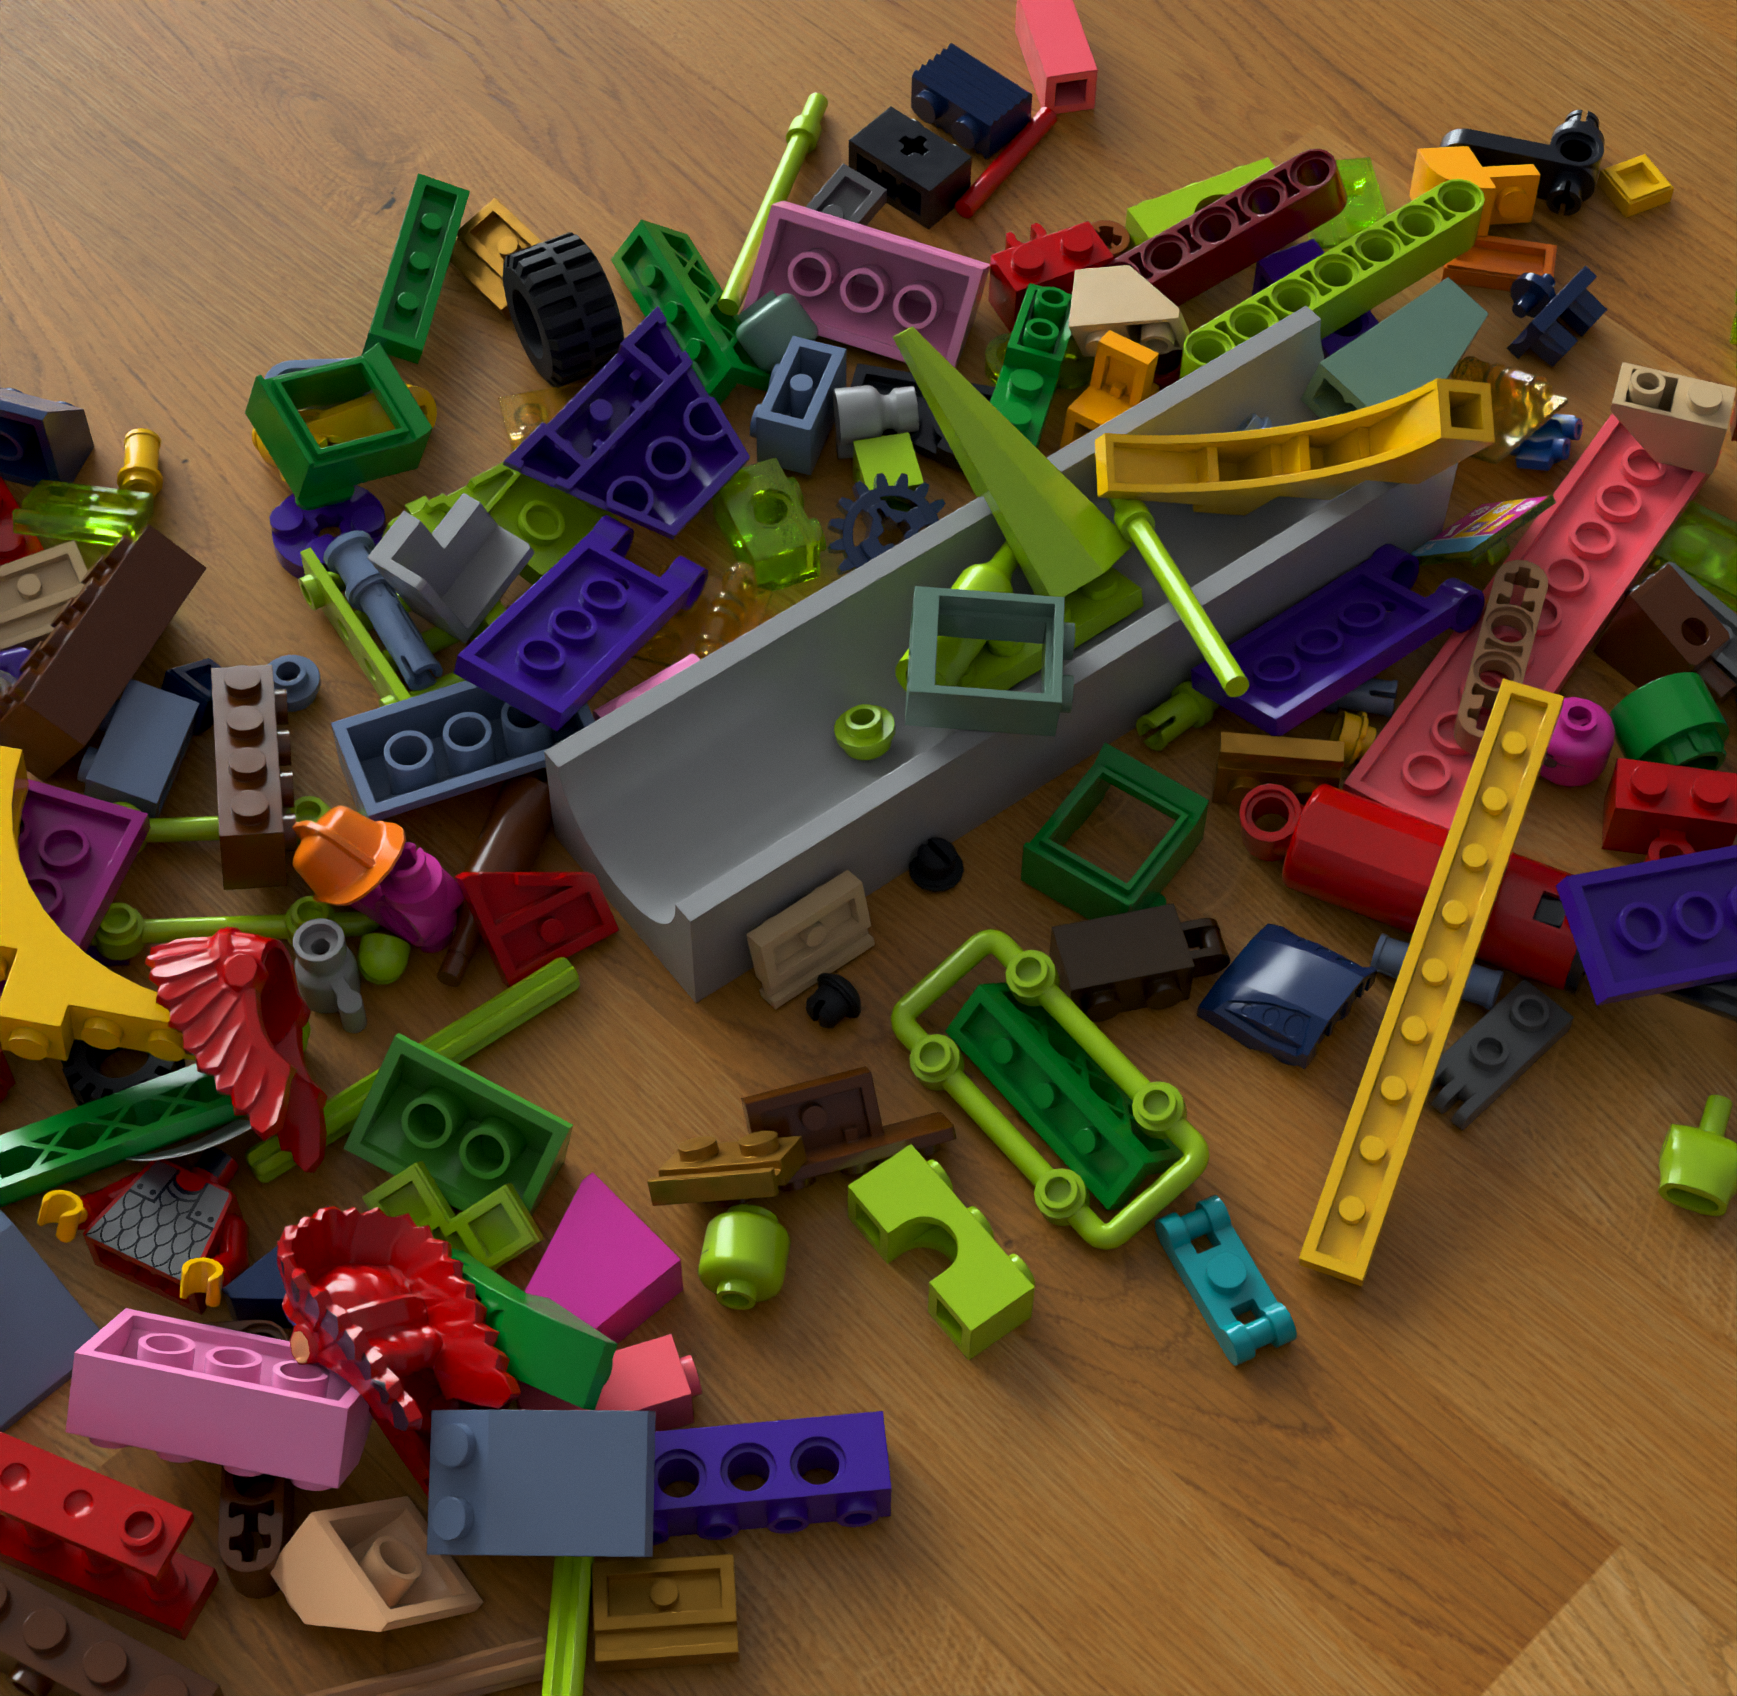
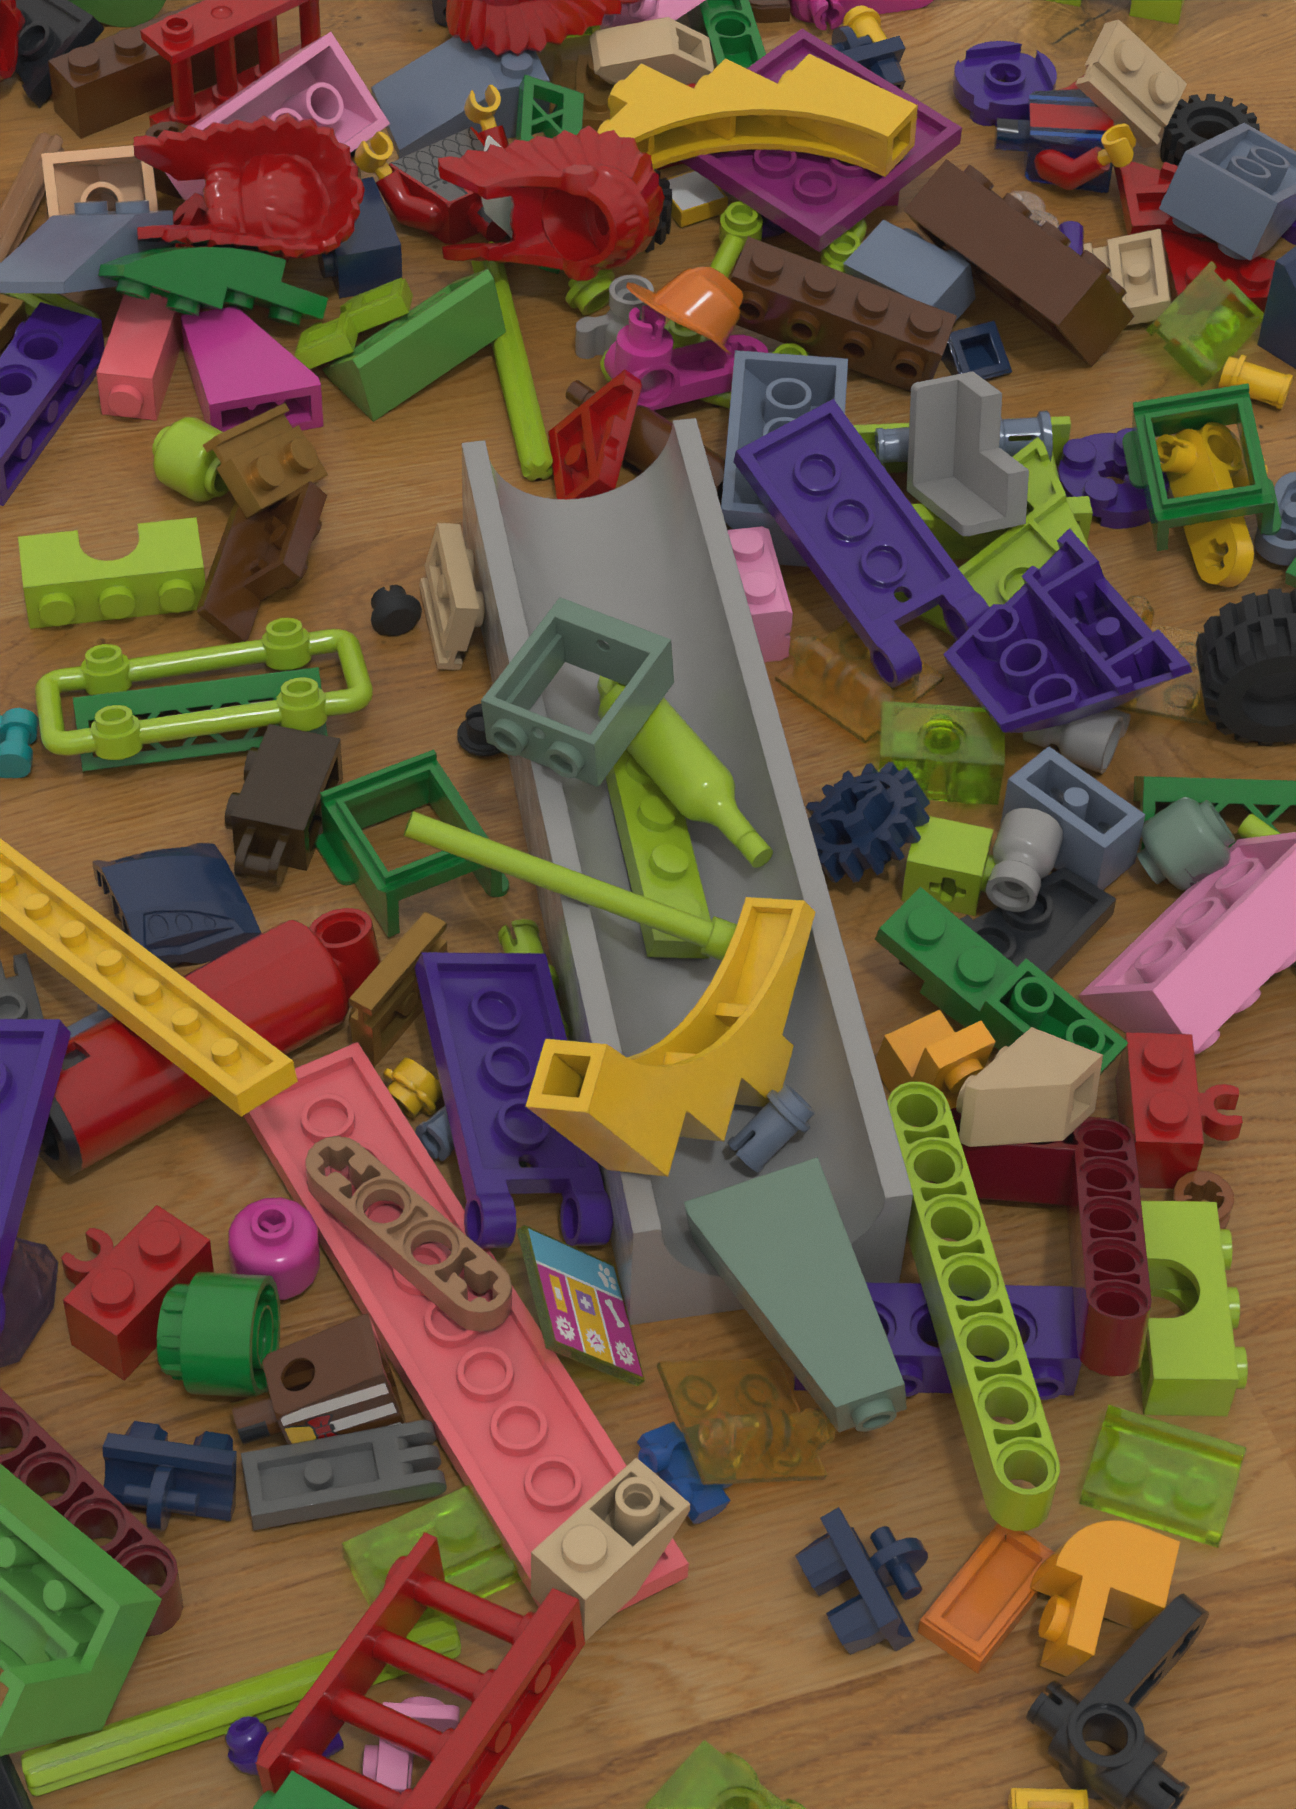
camera: 115 degrees right, 5 degrees down
(1042, 514) = (787, 812): lime wedge -> none

